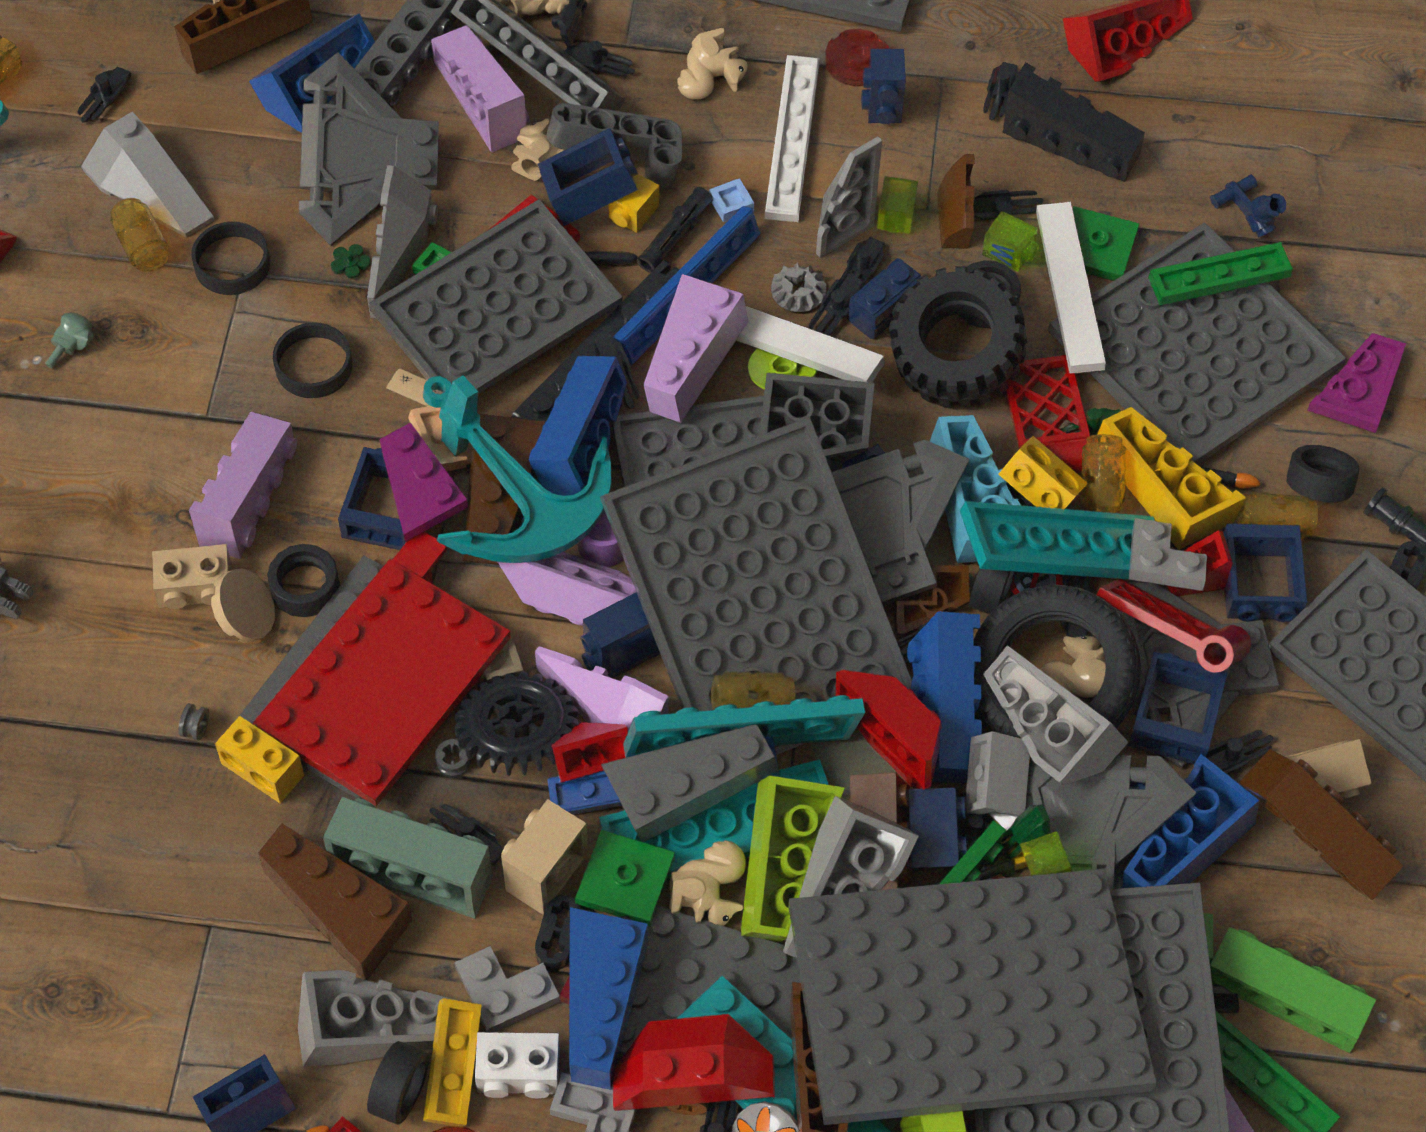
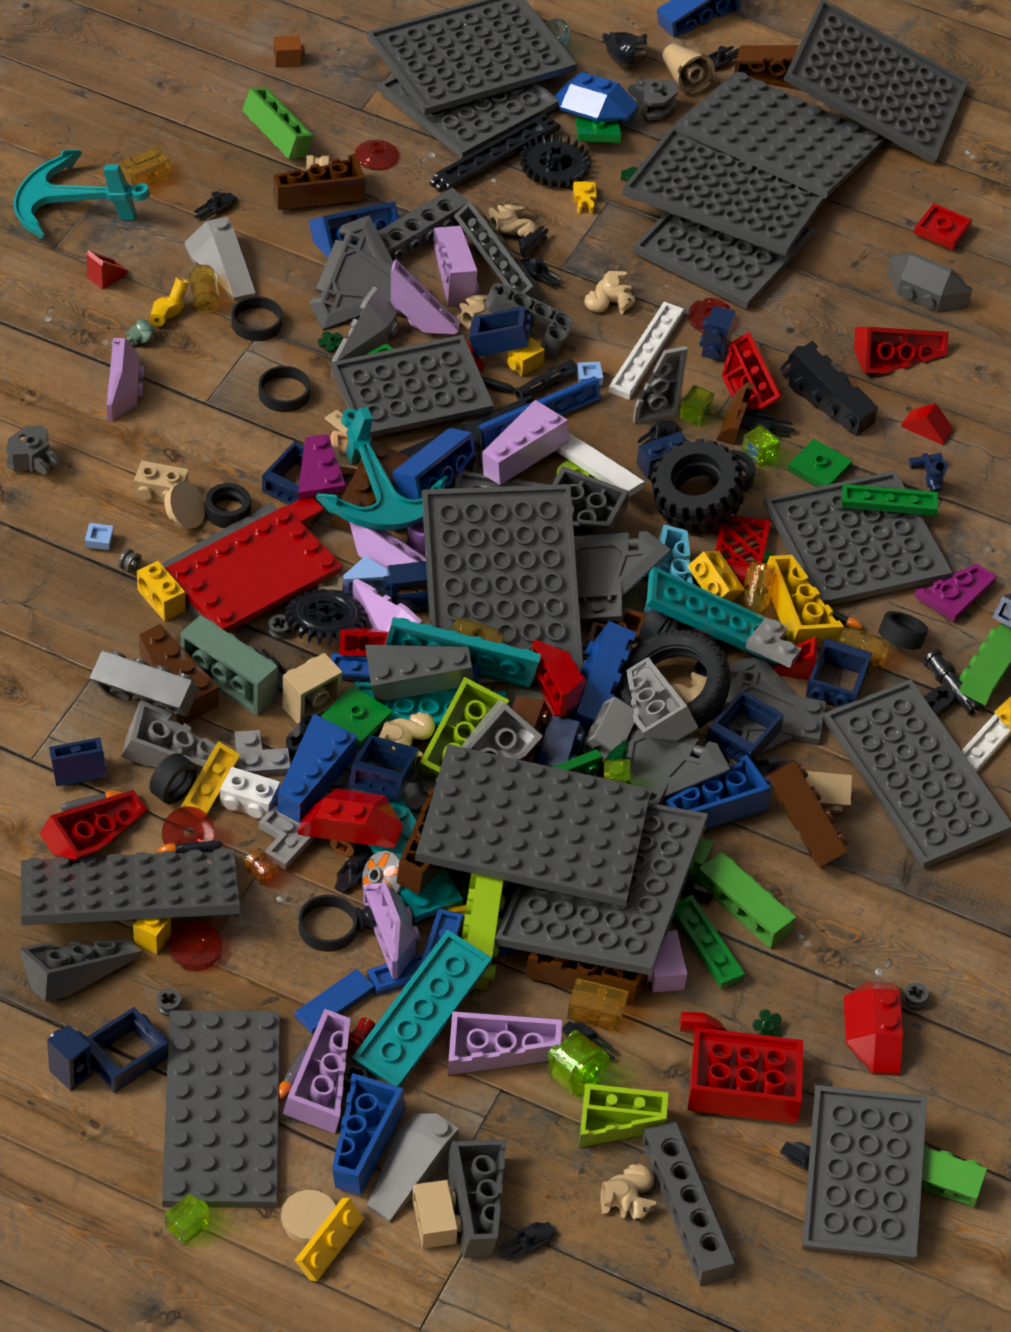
camera: 15 degrees right, 10 degrees down
(75, 421) = (124, 379): none -> lavender wedge
(97, 277) = (171, 305): none -> yellow arm
(133, 695) = (99, 536): none -> light blue plate
(243, 484) = (212, 441): lavender wedge -> none
(300, 941) = (144, 683): none -> wedge
(458, 168) = (419, 304): none -> lavender wedge
(549, 630) = (366, 571): none -> light blue slope
(705, 989) = (379, 779): none -> dark blue window
(803, 299) = (611, 441): light grey gear -> none
(836, 303) = (630, 449): black piece -> none
(947, 129) = (749, 364): none -> red wedge
(1070, 288) = (787, 481): white tile -> none
(1213, 132) = (929, 423): none -> red slope
(1214, 648) = (777, 696): red piece -> none

